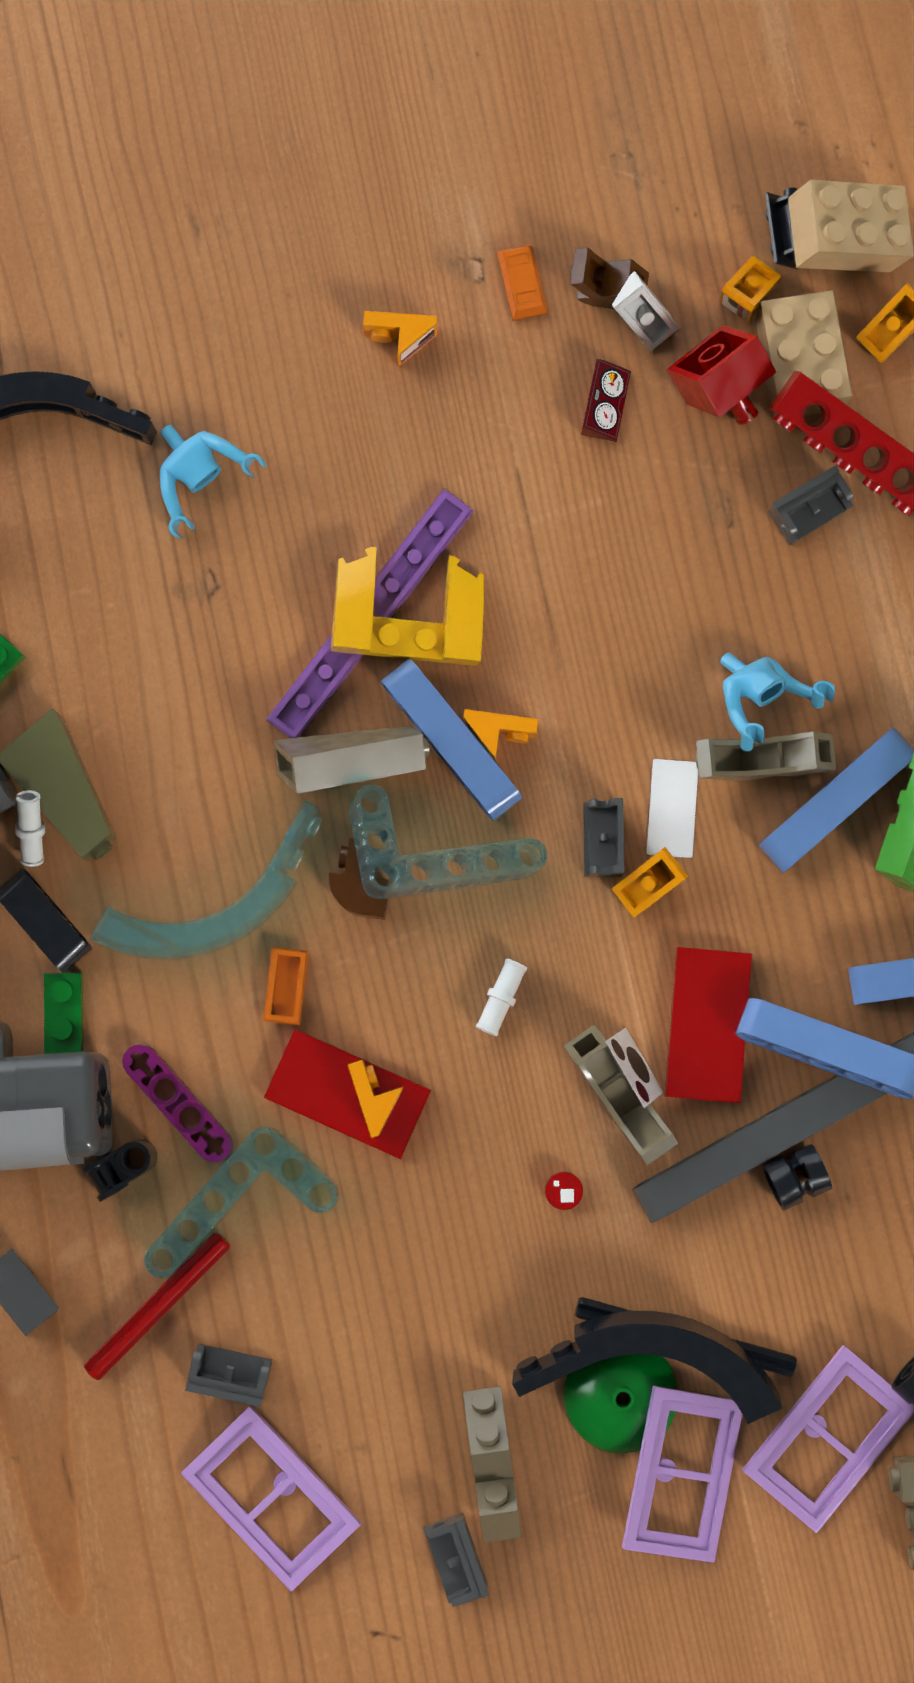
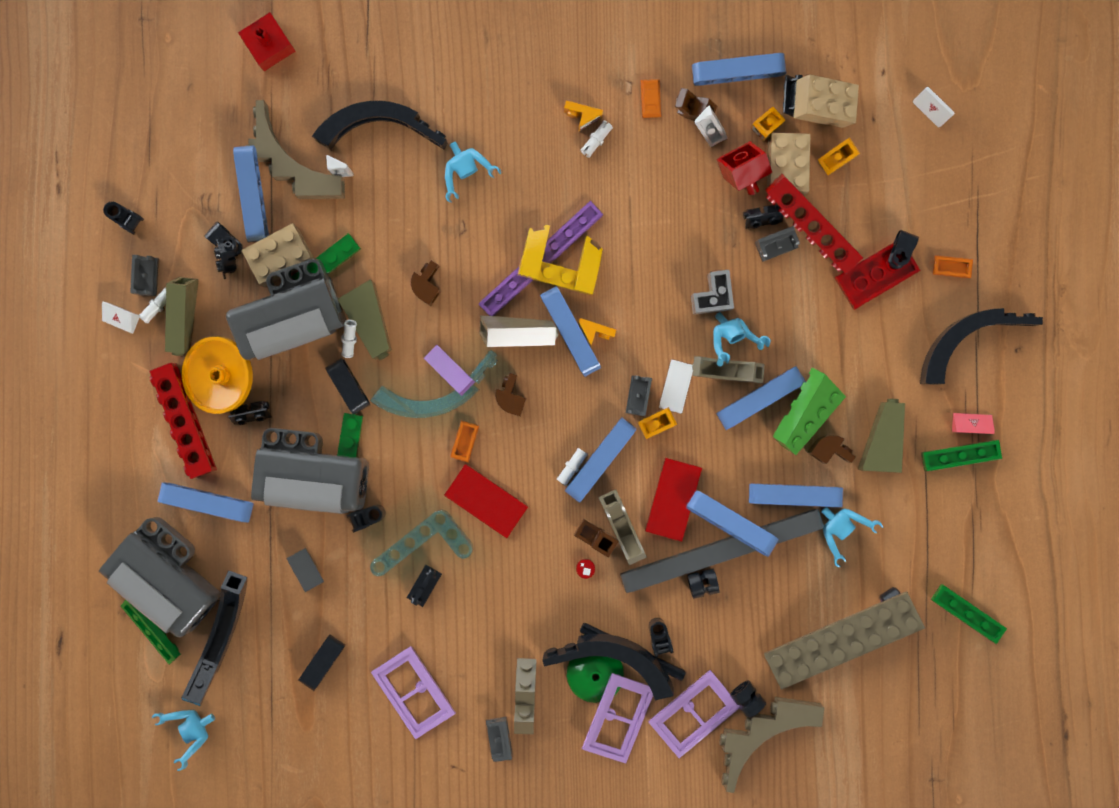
camera: 10 degrees right, 5 degrees up
(81, 1471) = (321, 662): none -> black beam
(152, 703) = (421, 284): none -> reddish brown brick
(156, 1306) = (373, 588): red axle -> none
(173, 1107) = (403, 488): magenta beam -> none
(229, 1375) = (402, 629): dark grey hinge -> none
(232, 853) = (449, 370): none -> medium lavender tile
(256, 1282) = (424, 586): none -> black hinge
(375, 1108) = (498, 511): light orange slope -> none
(432, 862) = (549, 393): clear light blue beam -> none
(434, 373) = (596, 139): none -> white pin
(553, 974) = (600, 459): none -> medium blue beam
(573, 1125) = (596, 538): none -> reddish brown brick
(606, 401) = (682, 169): slope -> none
(634, 1067) = (632, 514): white sticker -> none
(676, 199) = (739, 69): none -> medium blue beam
(720, 622) = (719, 295): none -> light grey brick
(736, 1305) = (660, 640): none -> black piece
(789, 457) = (755, 218): none -> black hinge

